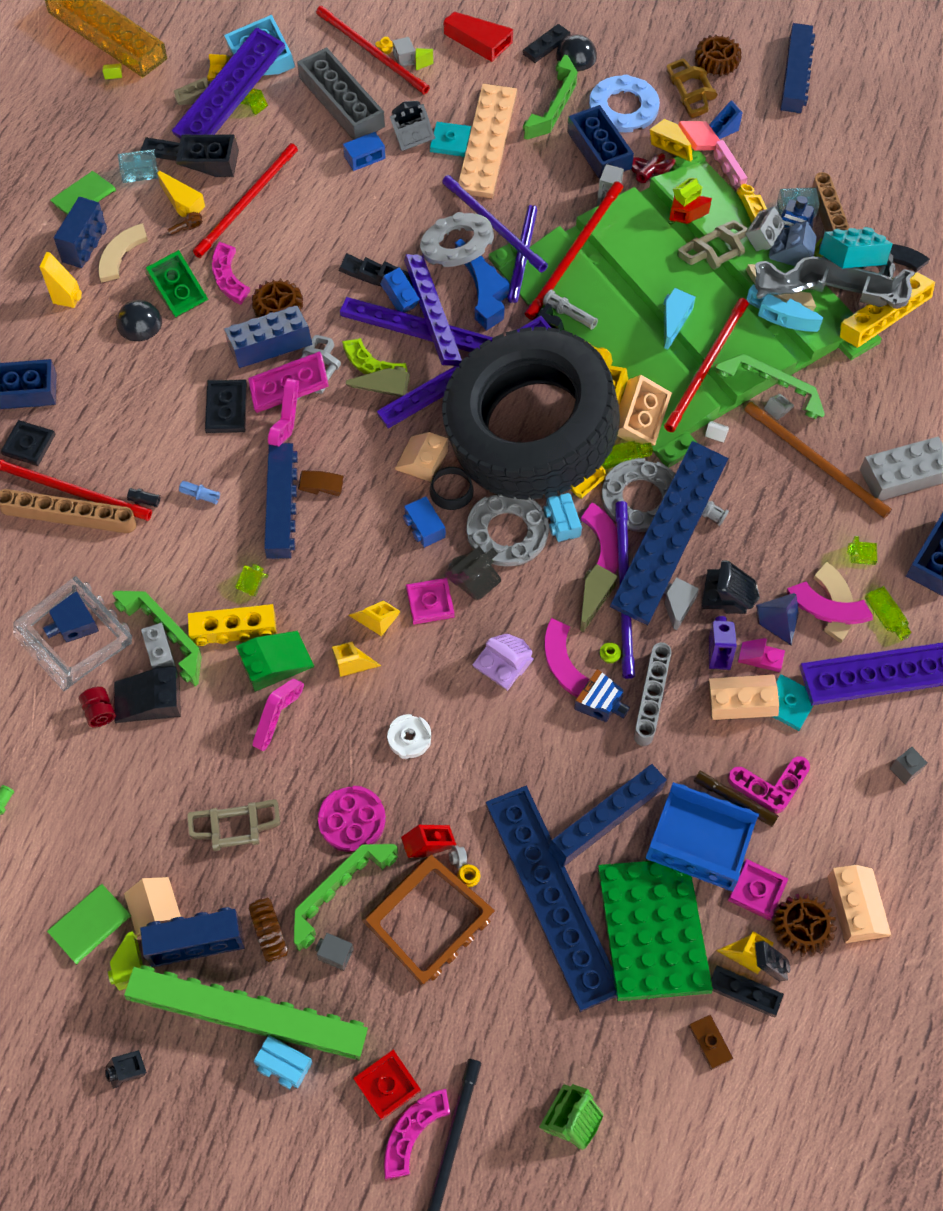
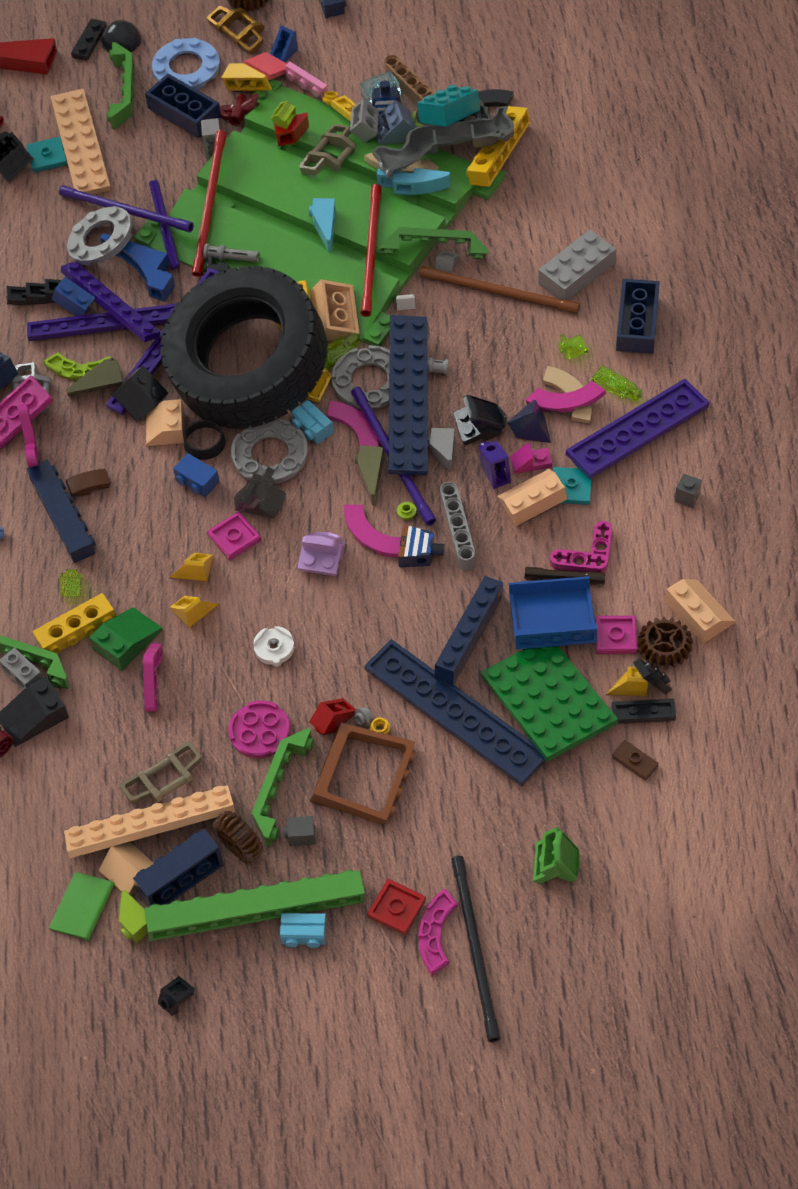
camera: 20 degrees left, 5 degrees down
(194, 868) = (148, 821): none -> light nougat plate
(411, 415) = (139, 393): none -> black slope

